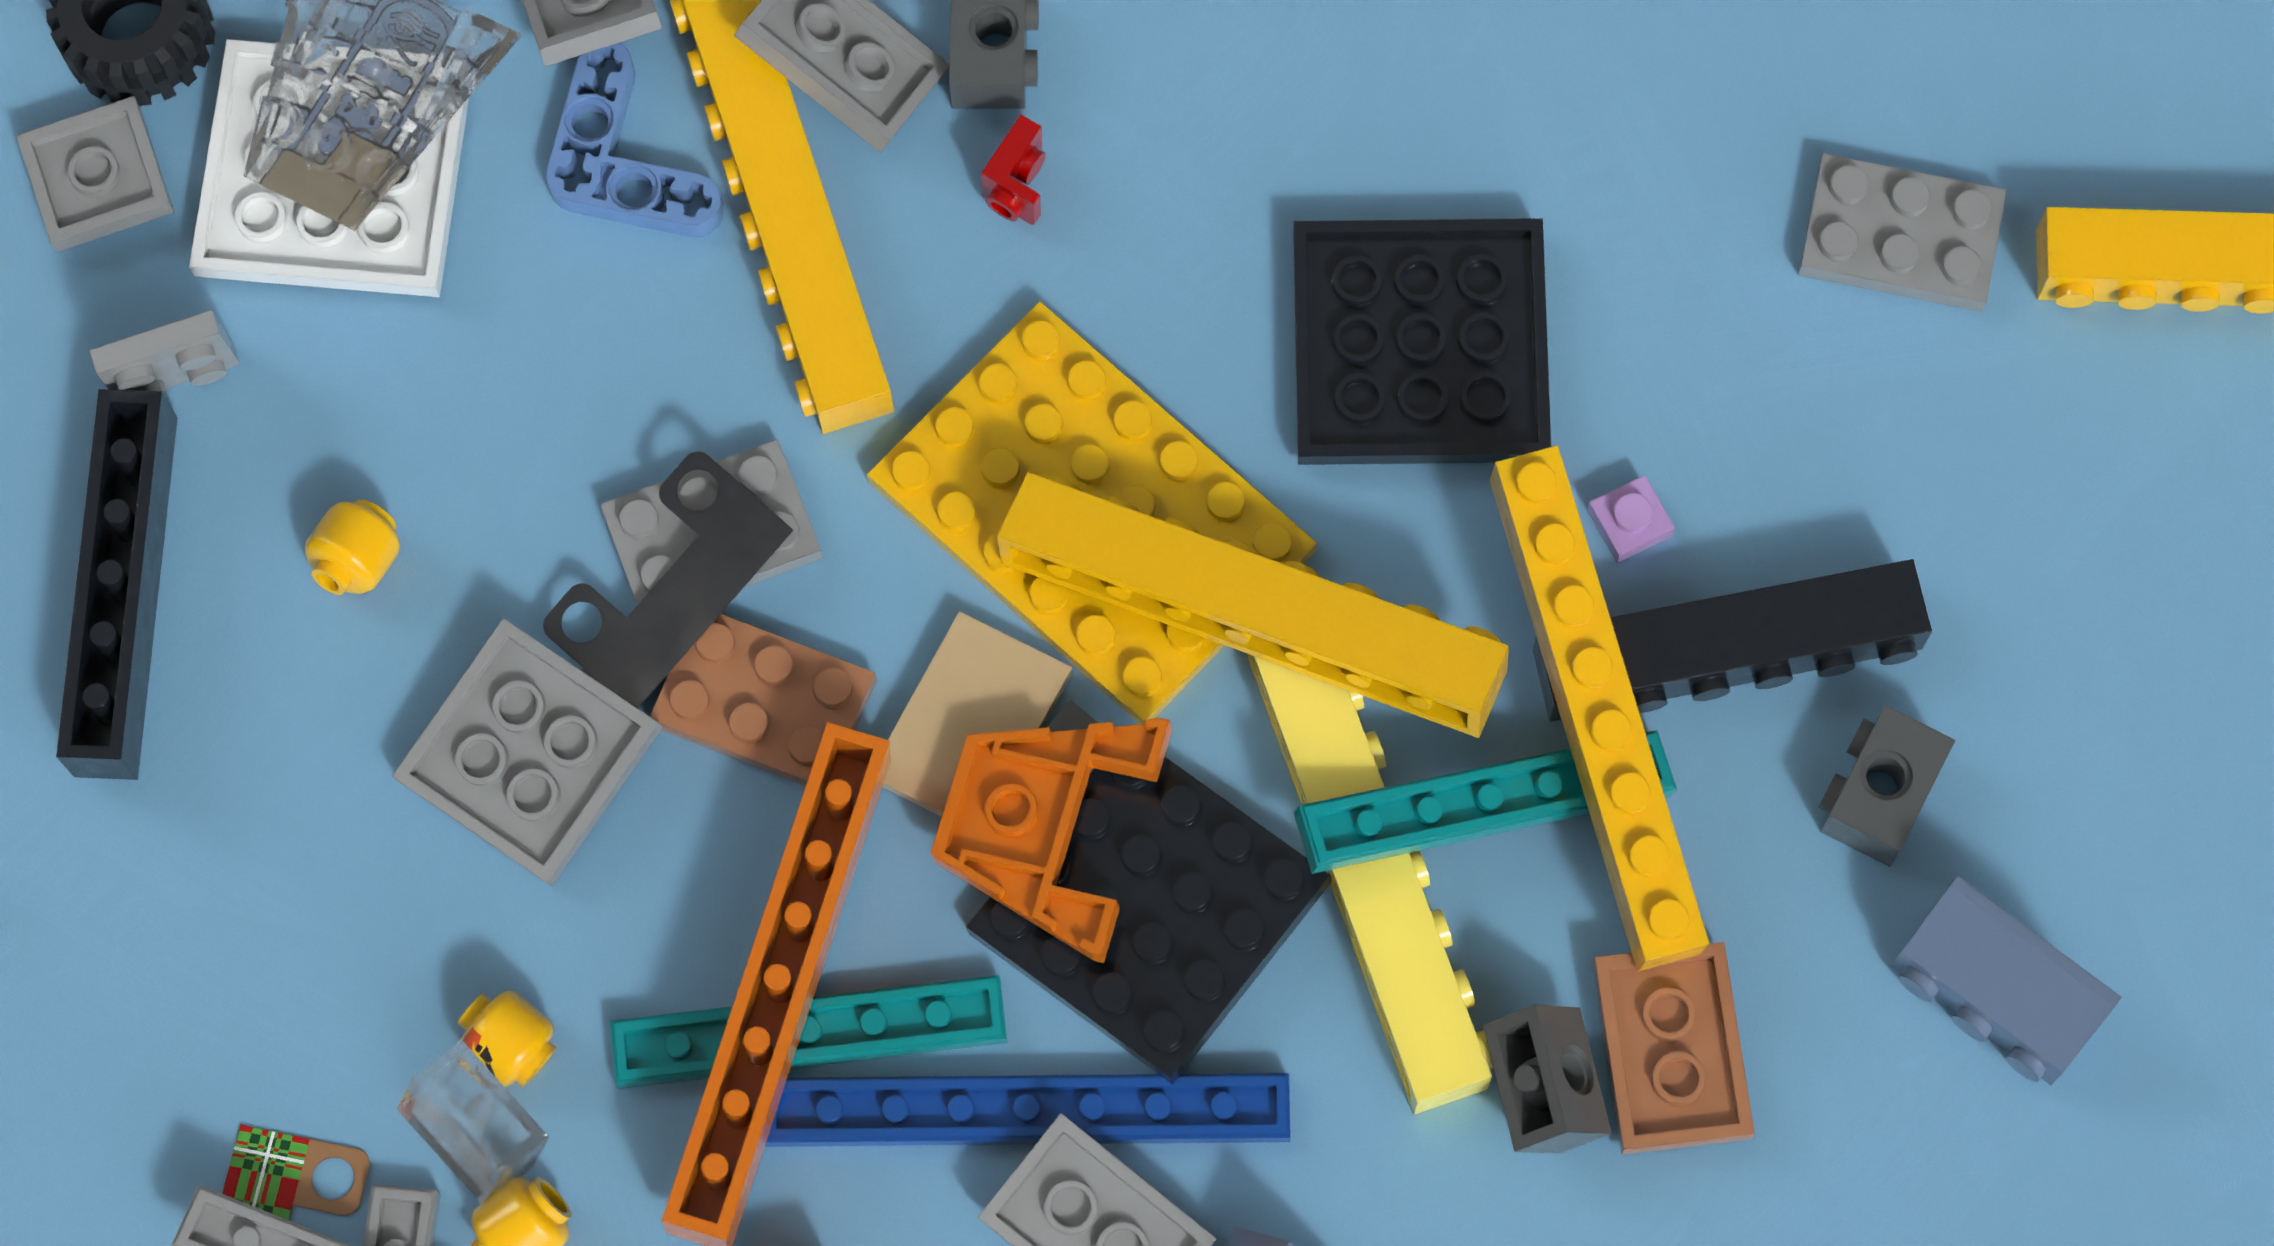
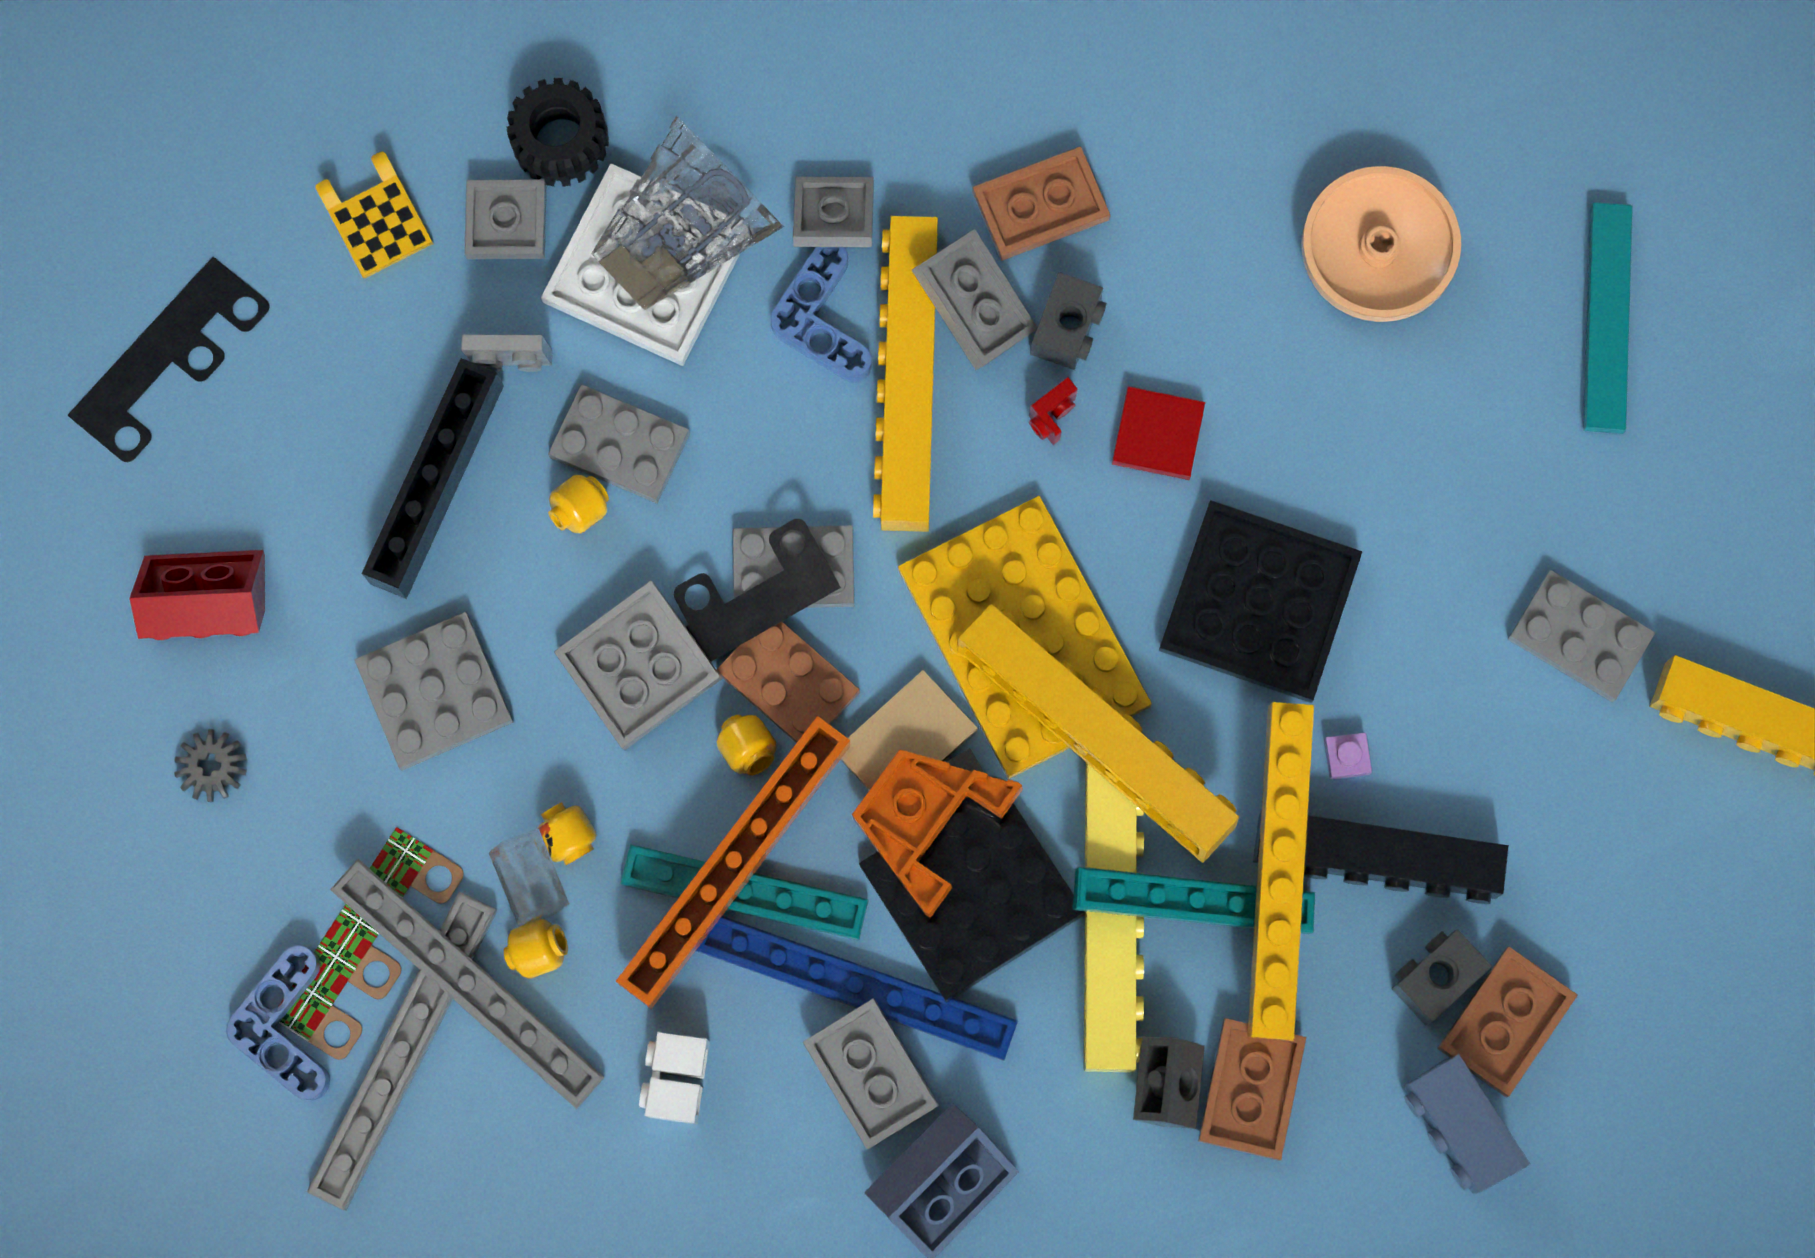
camera: 20 degrees right, 5 degrees up
(227, 901) = (433, 691): none -> light grey plate
(383, 441) = (619, 443): none -> light grey plate
(734, 811) = (746, 744): none -> yellow head
(1182, 154) = (1158, 433): none -> red tile
(2008, 813) = (1508, 1021): none -> nougat plate

